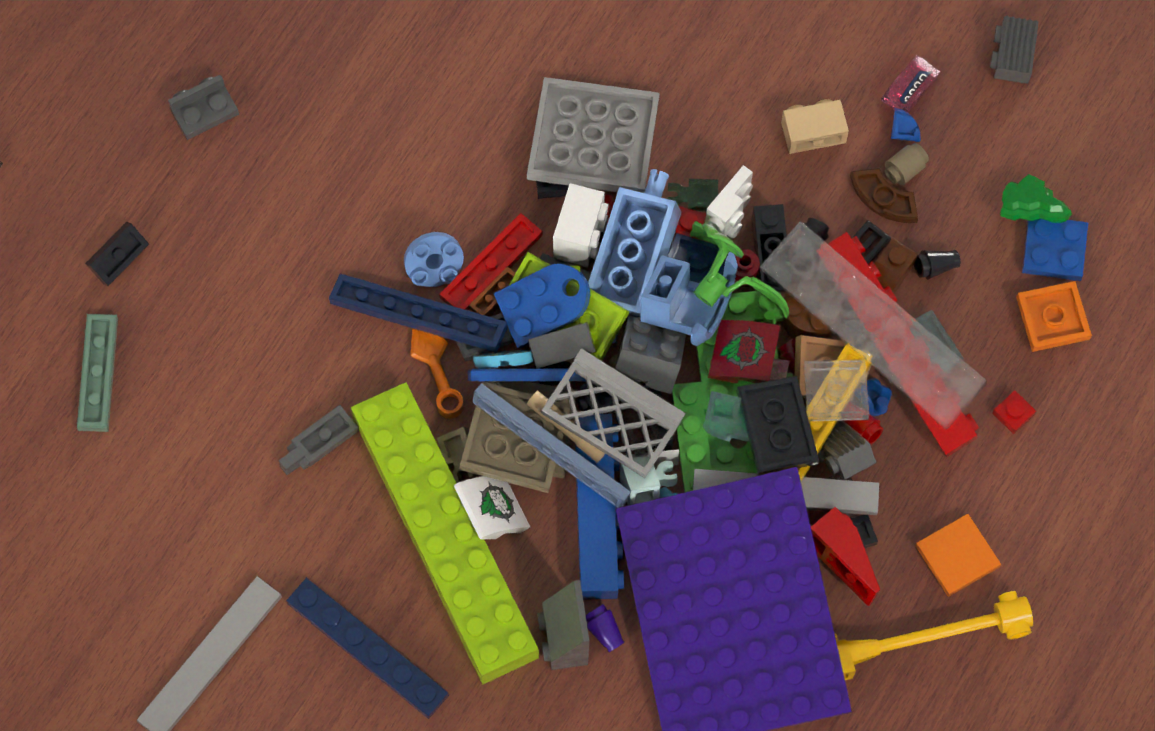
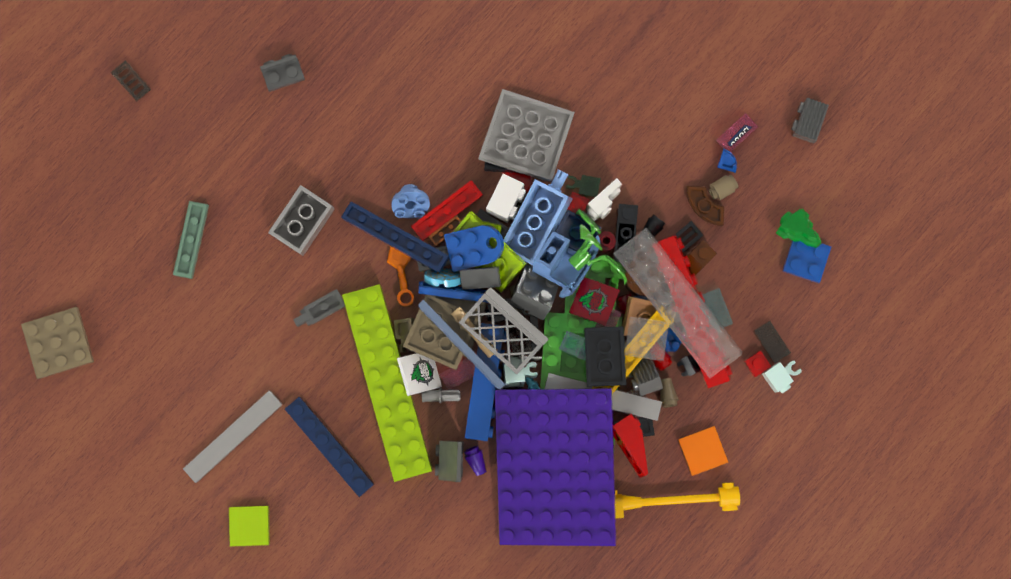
camera: 15 degrees right, 15 degrees up
(117, 253) = (213, 164): black plate -> none
(268, 311) = (301, 220): none -> light grey brick
(531, 538) = (441, 395): none -> light grey axle
(552, 506) = (464, 372): none -> clear pink tile
(814, 126) = (669, 151): tan brick -> none
(888, 478) = (668, 394): none -> dark tan cone
(912, 427) = (690, 365): none -> black tile
(933, 263) = (728, 257): black cone -> none
(1028, 376) = (771, 342): none -> clear smoke tile
(1053, 316) = (795, 305): orange plate -> none
(1053, 423) = (779, 376): none -> light aqua brick

